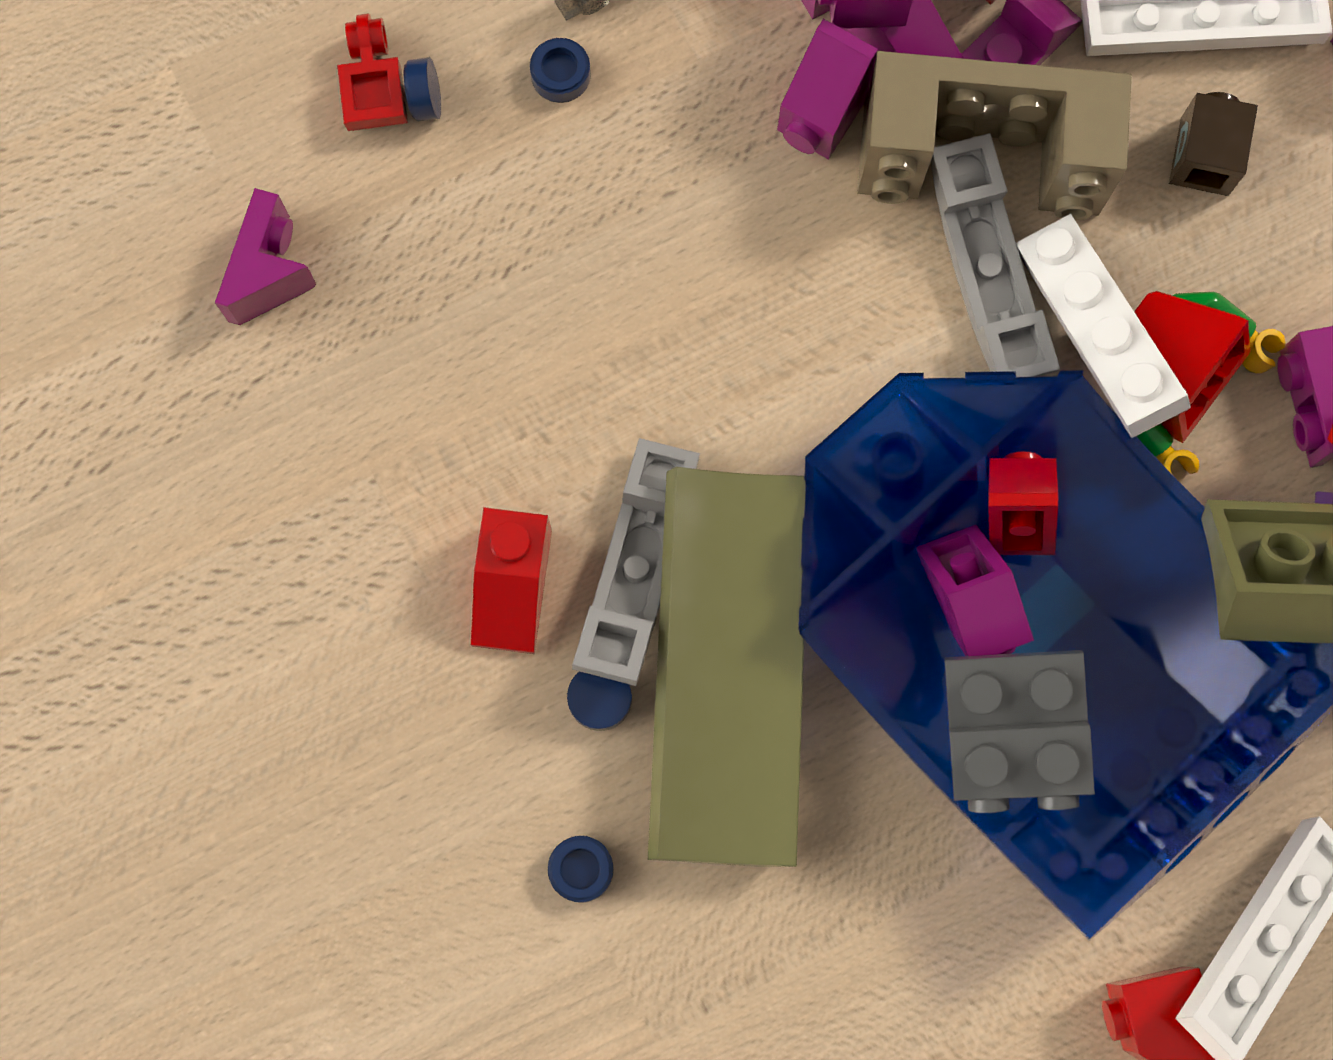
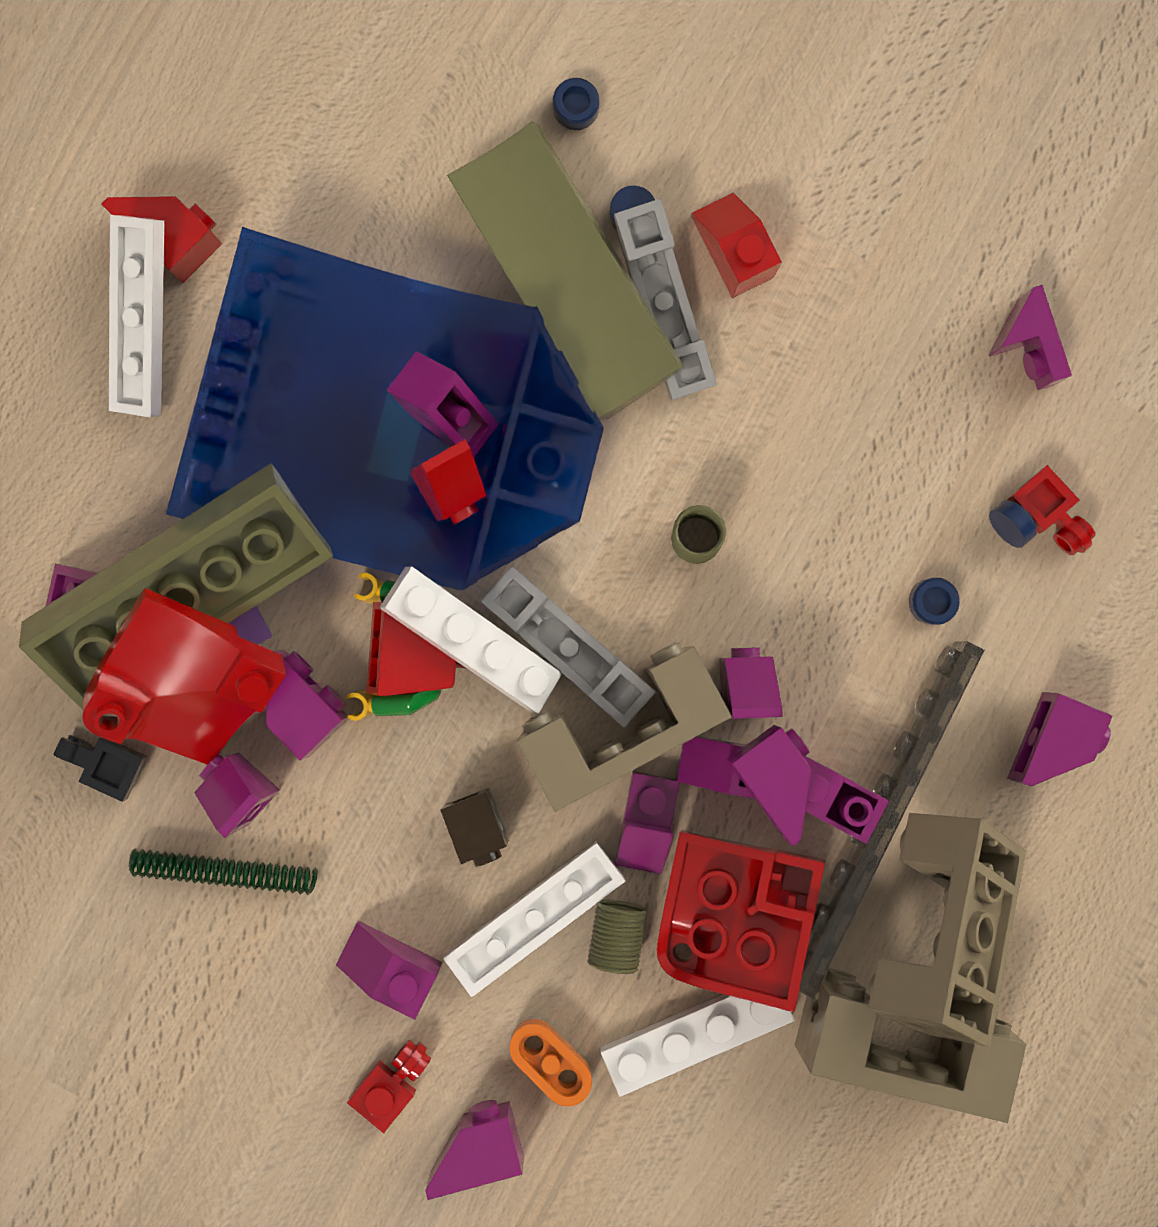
camera: 140 degrees right, 10 degrees up
(784, 261) = (711, 516): none -> olive piece
(1019, 729) = (361, 323): dark grey plate -> none

